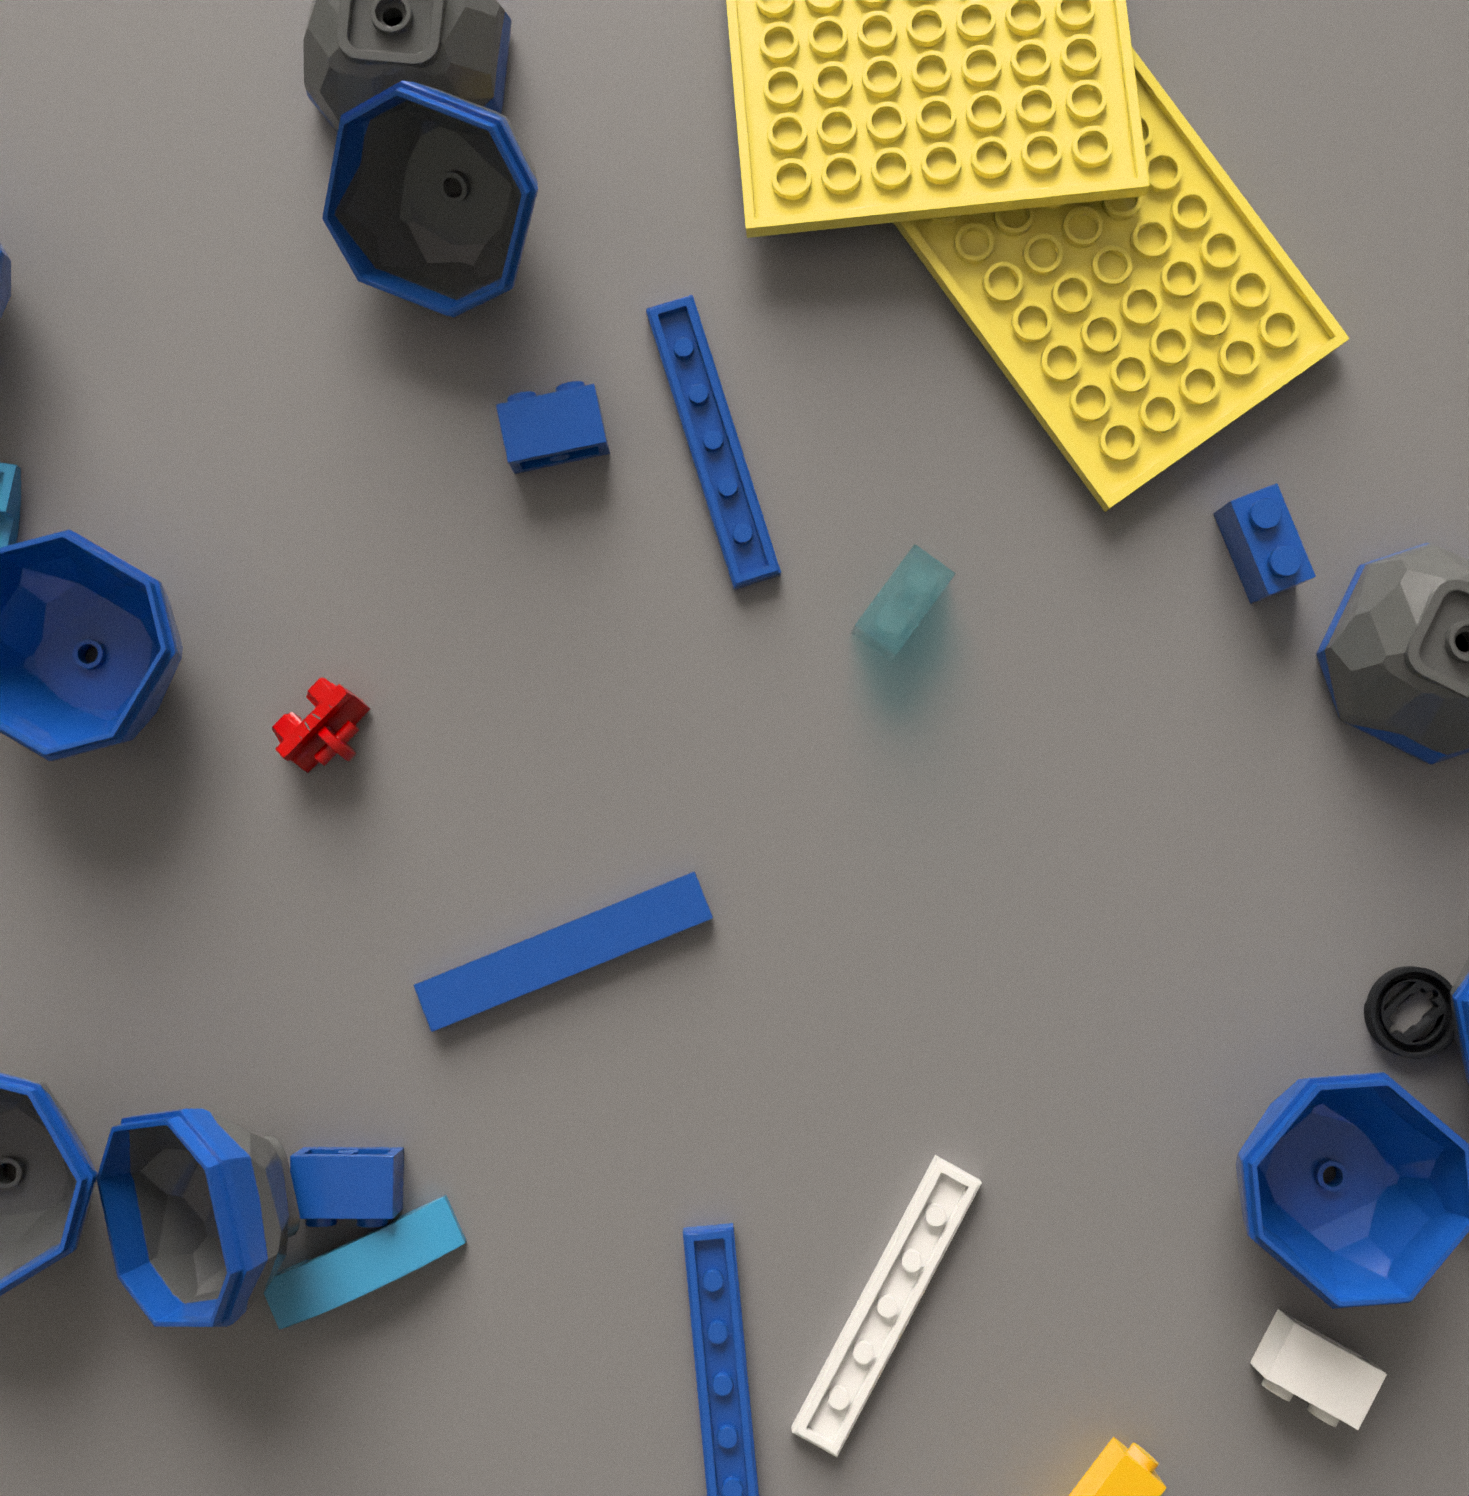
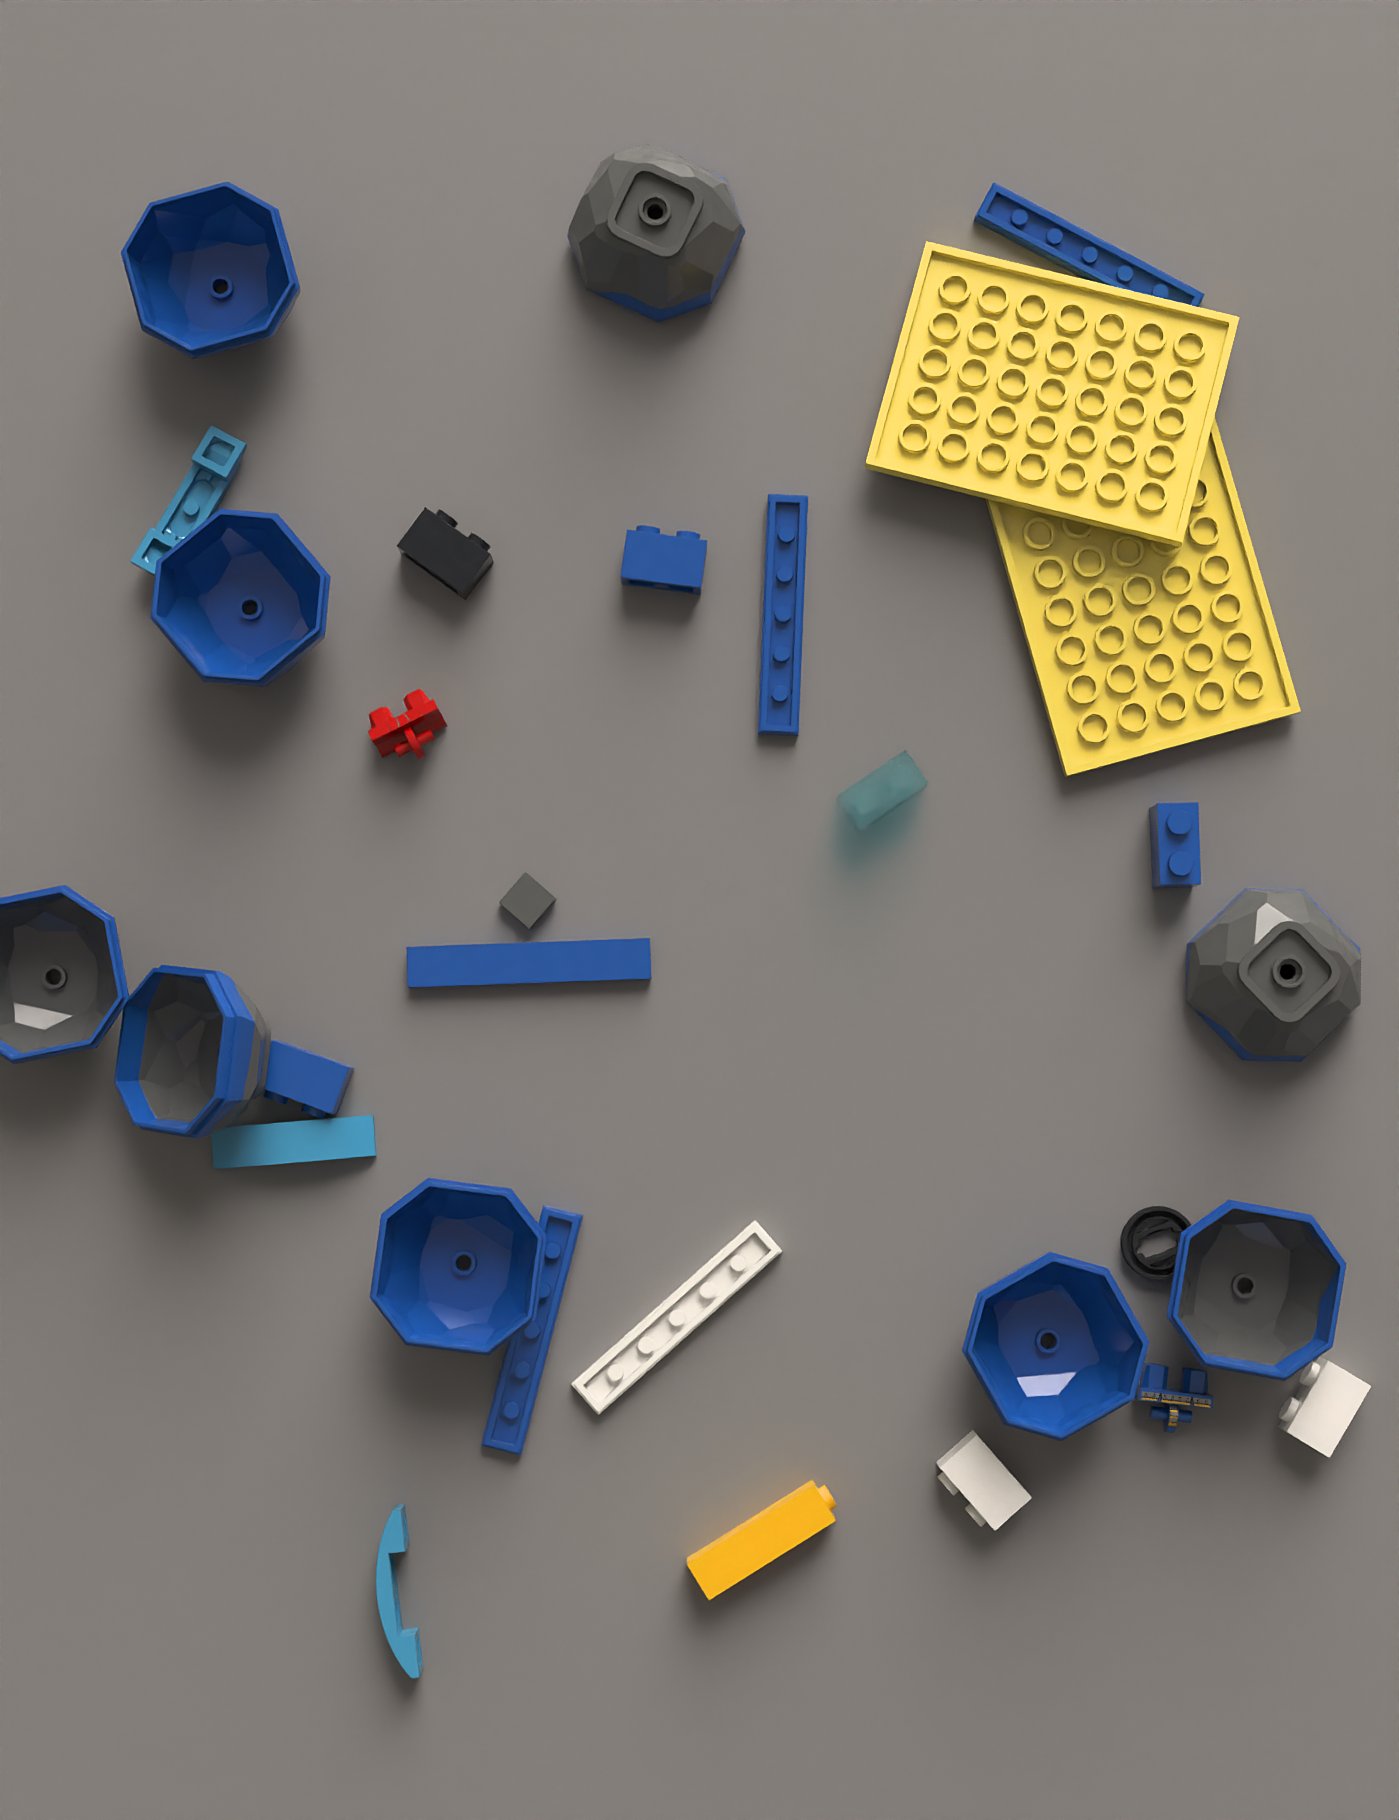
camera: 20 degrees right, 0 degrees up
(295, 507) = (446, 552): none -> black brick
(396, 206) = (608, 364): dark grey rock -> none
(536, 878) = (527, 900): none -> dark grey tile
(600, 1399) = (418, 1273): none -> blue rock

